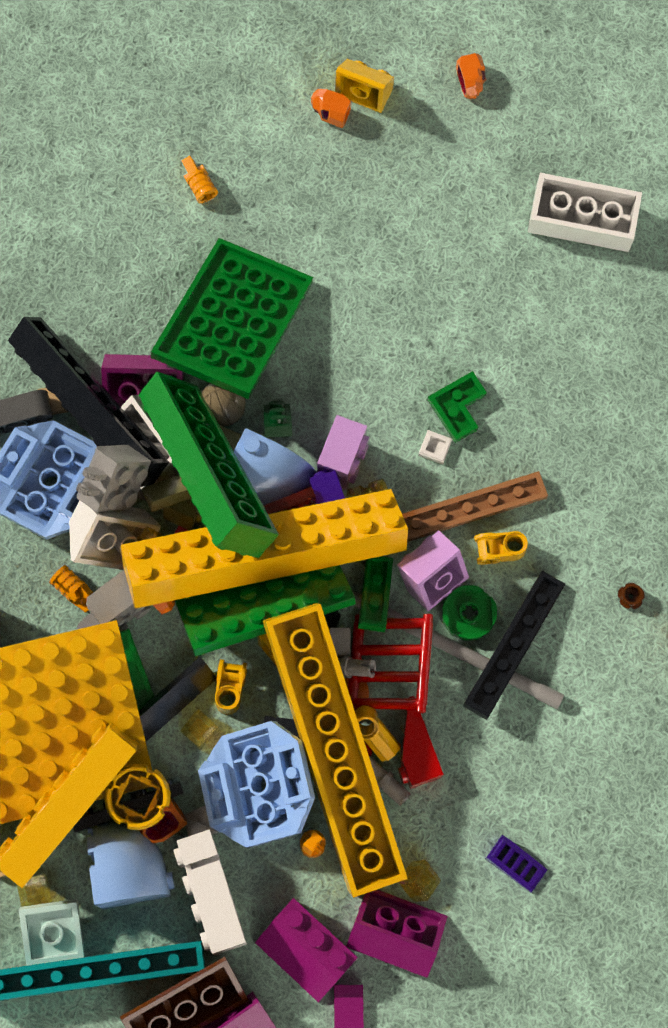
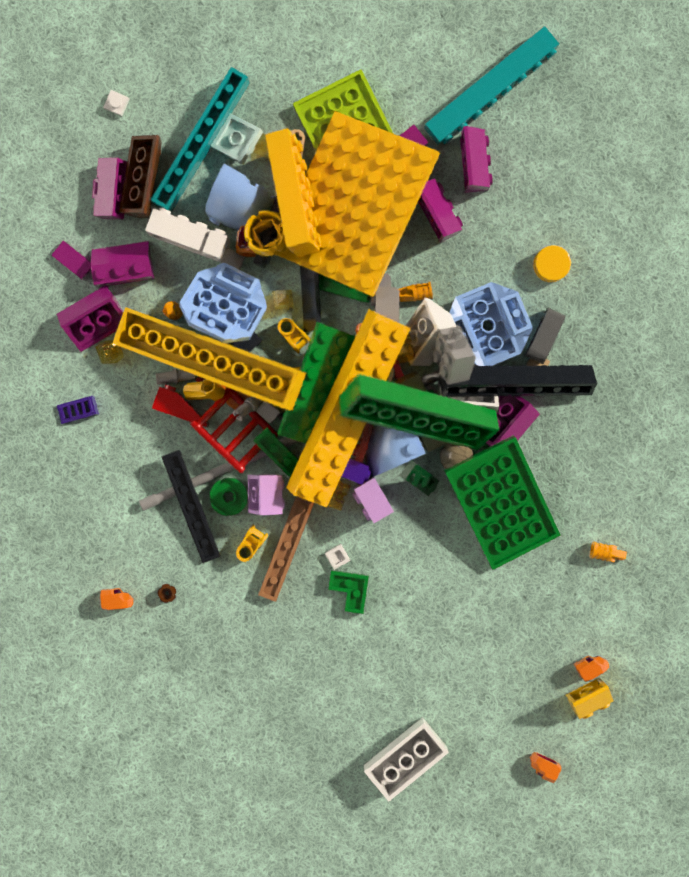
camera: 135 degrees right, 15 degrees up
(165, 493) = (425, 378): olive slope -> none

